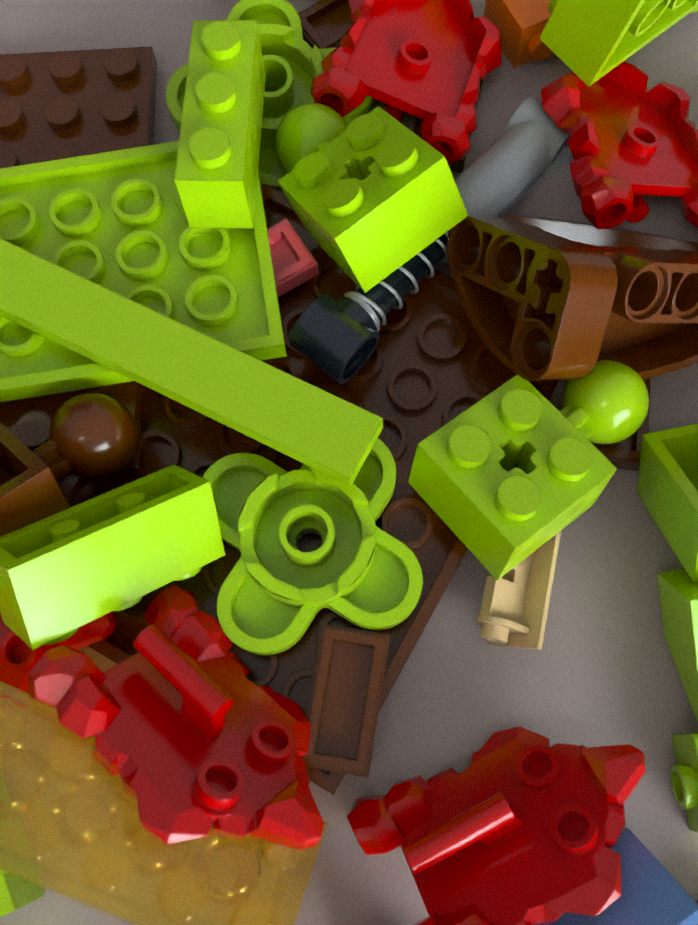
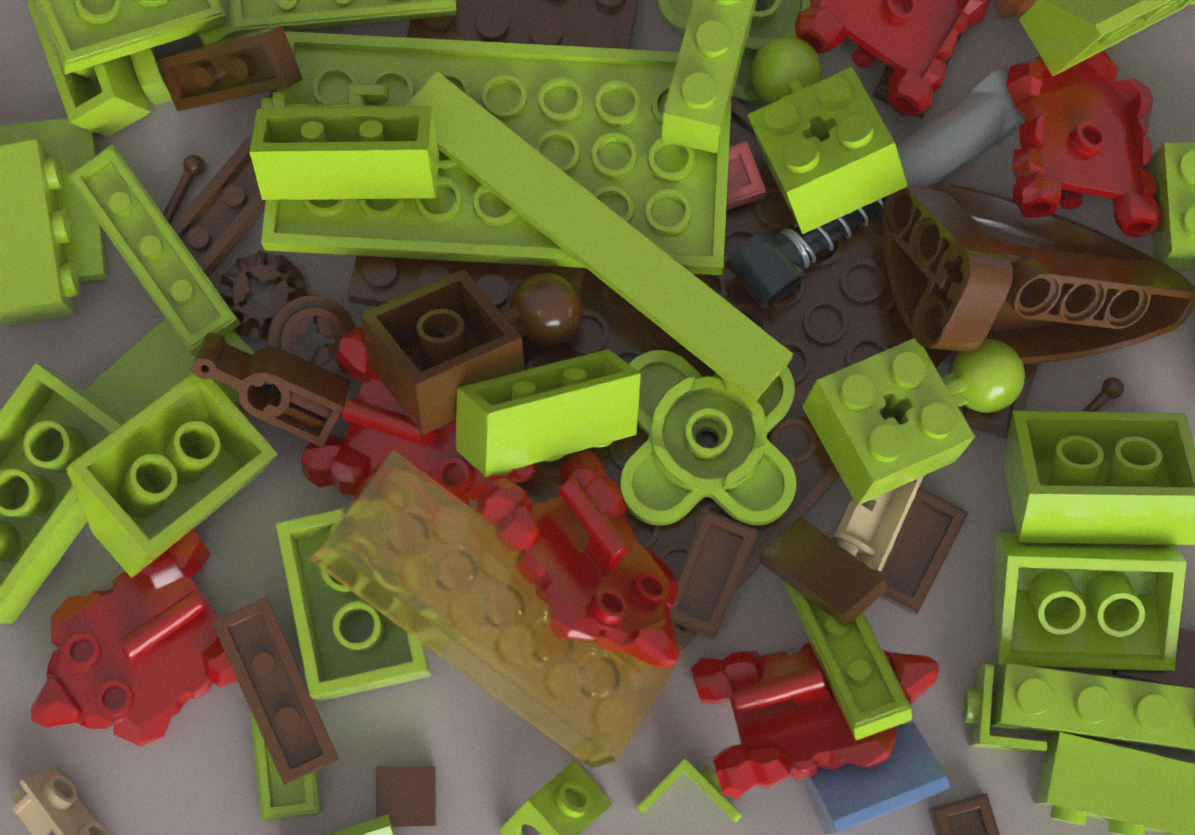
camera: 10 degrees right, 5 degrees up
(478, 668) = (823, 571): none -> reddish brown tile
(523, 751) = (854, 668): none -> lime tile
(575, 618) = (920, 550): none -> reddish brown tile

